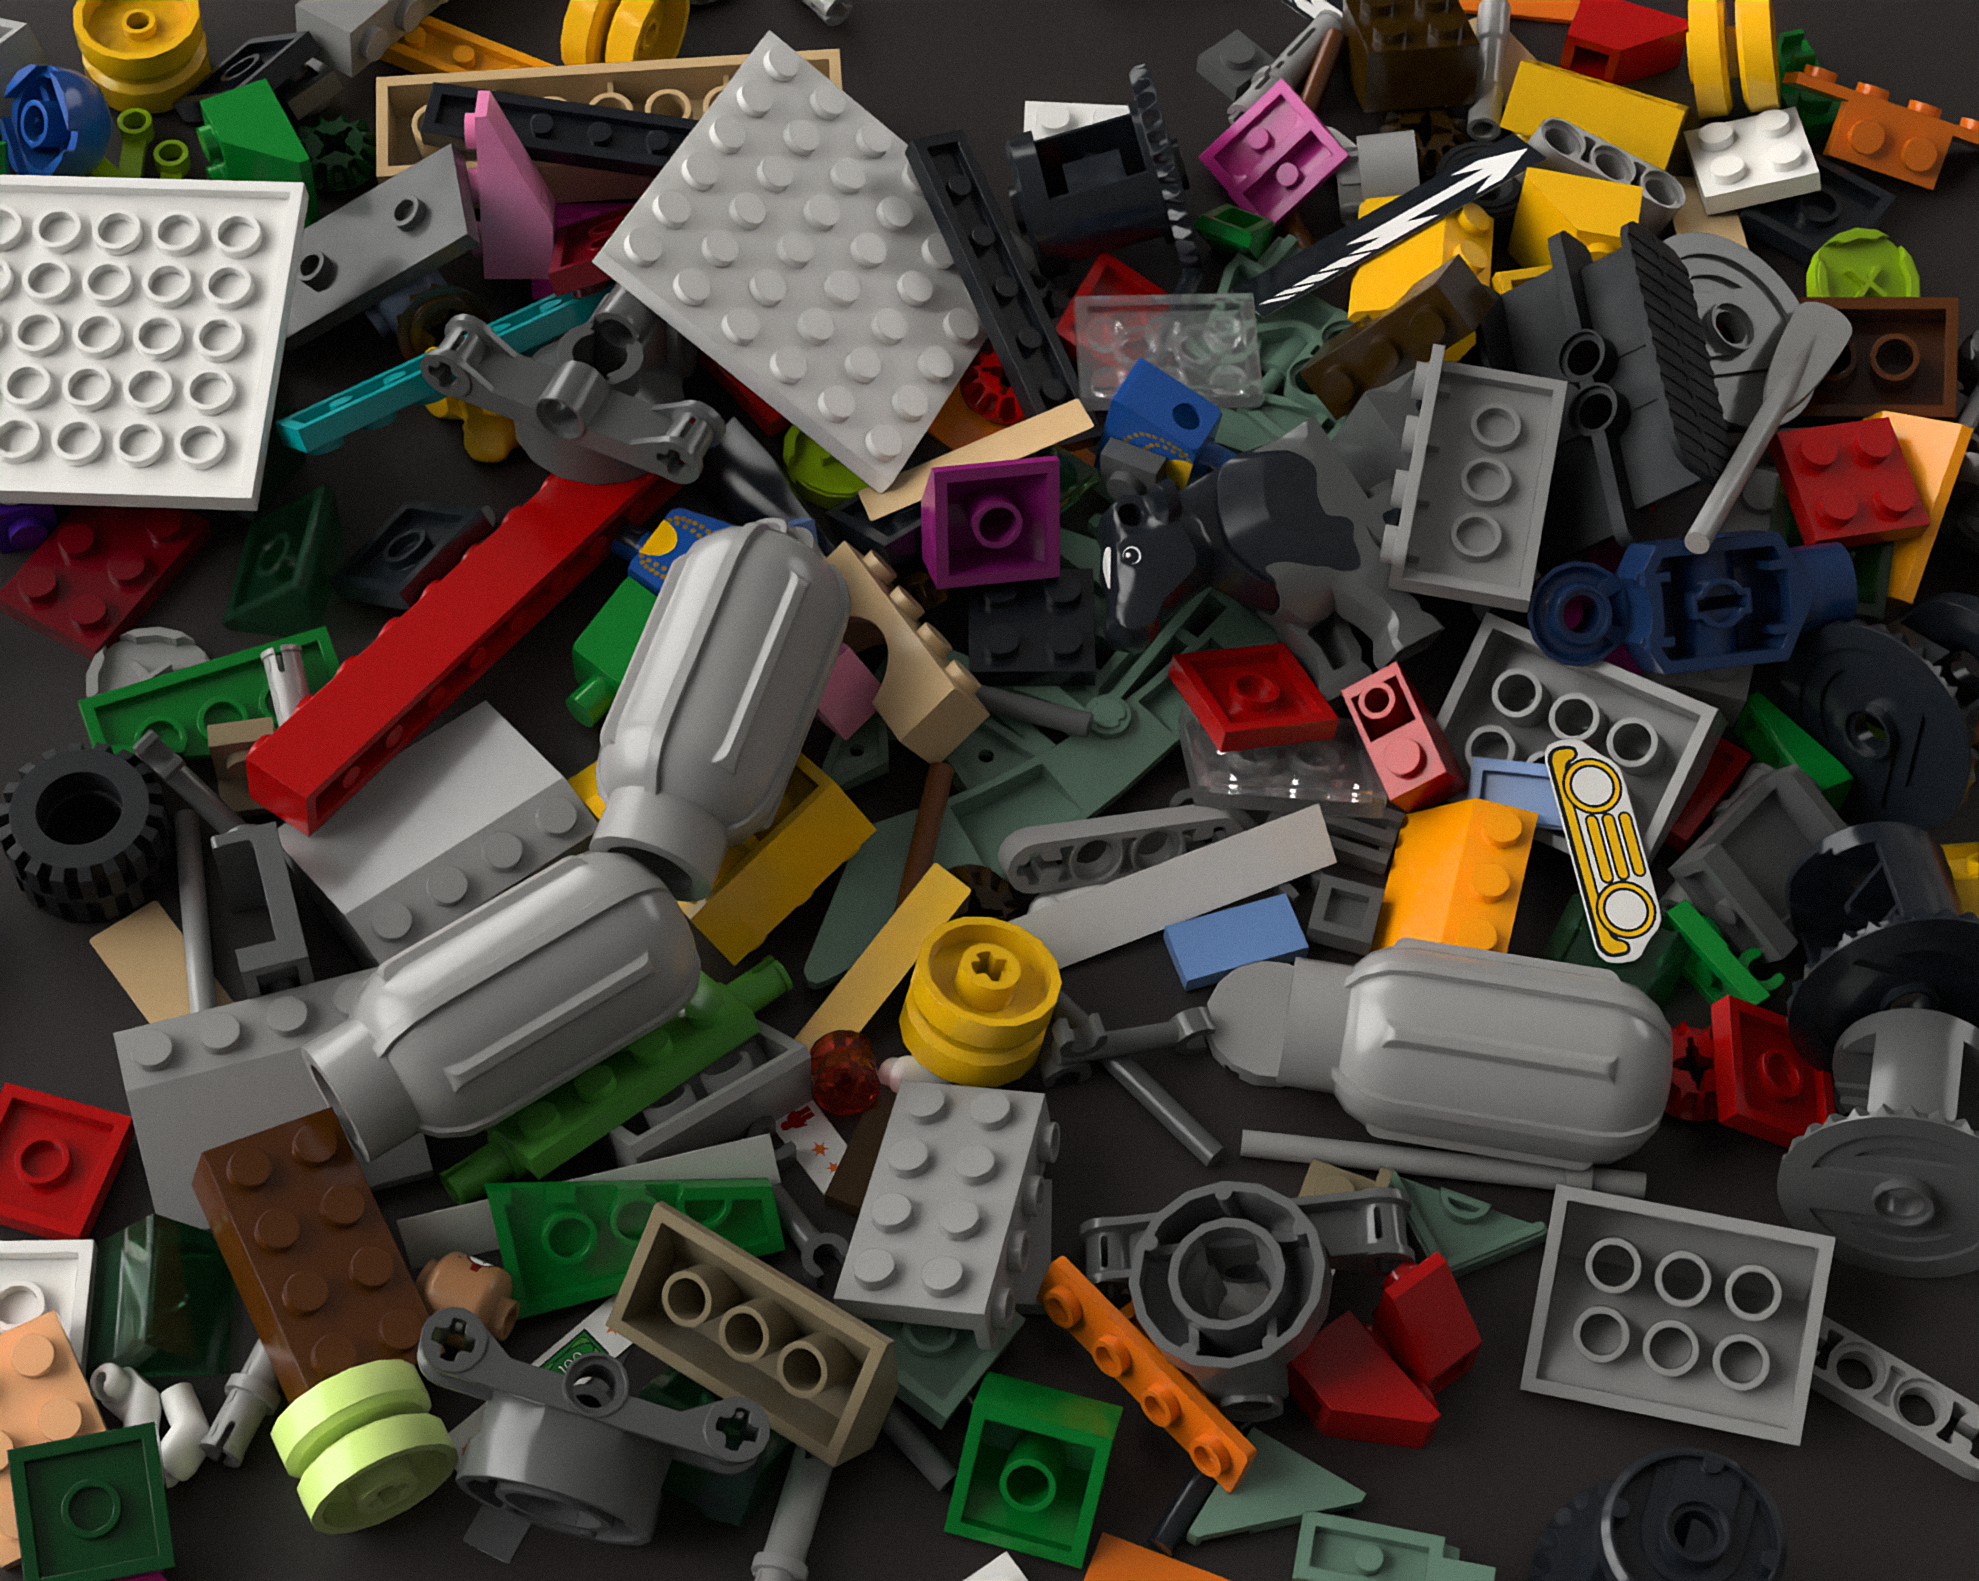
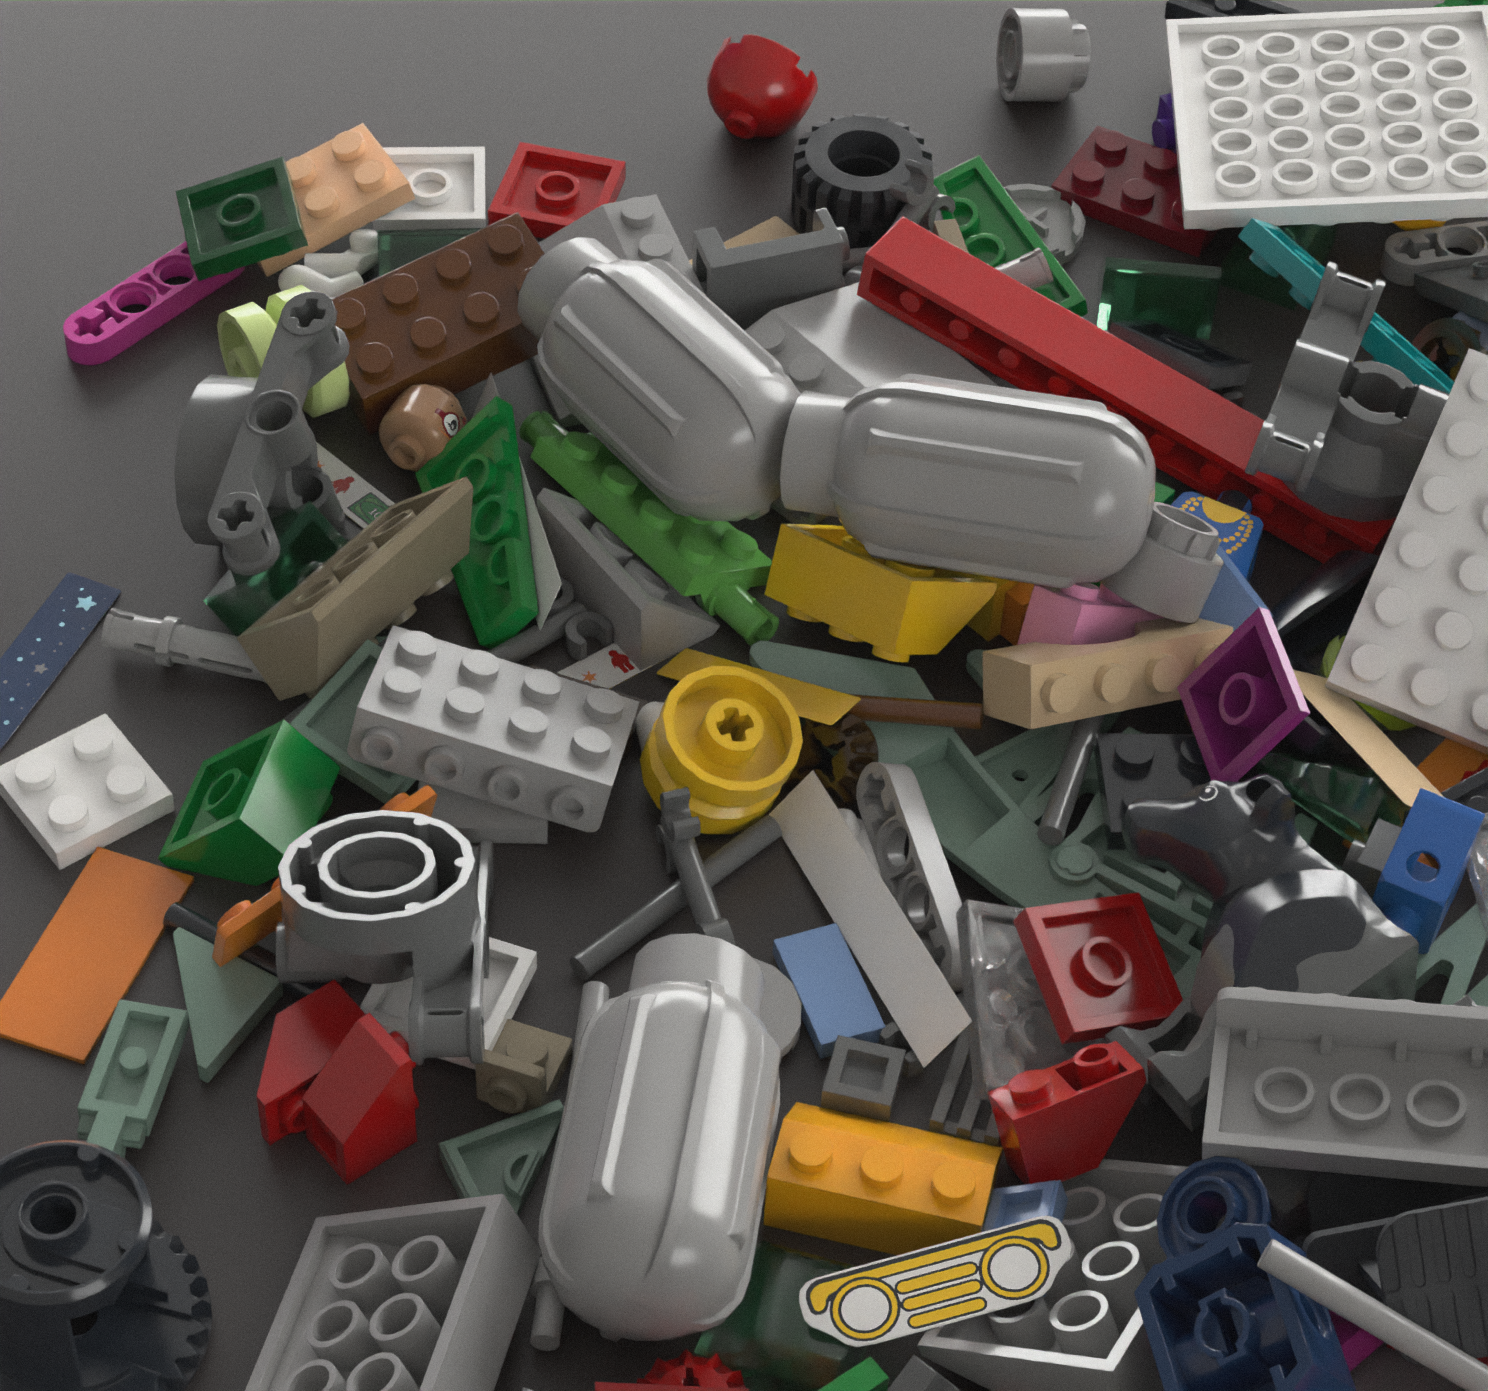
camera: 90 degrees right, 10 degrees down
(831, 1062) = (650, 666): clear red wheel -> none

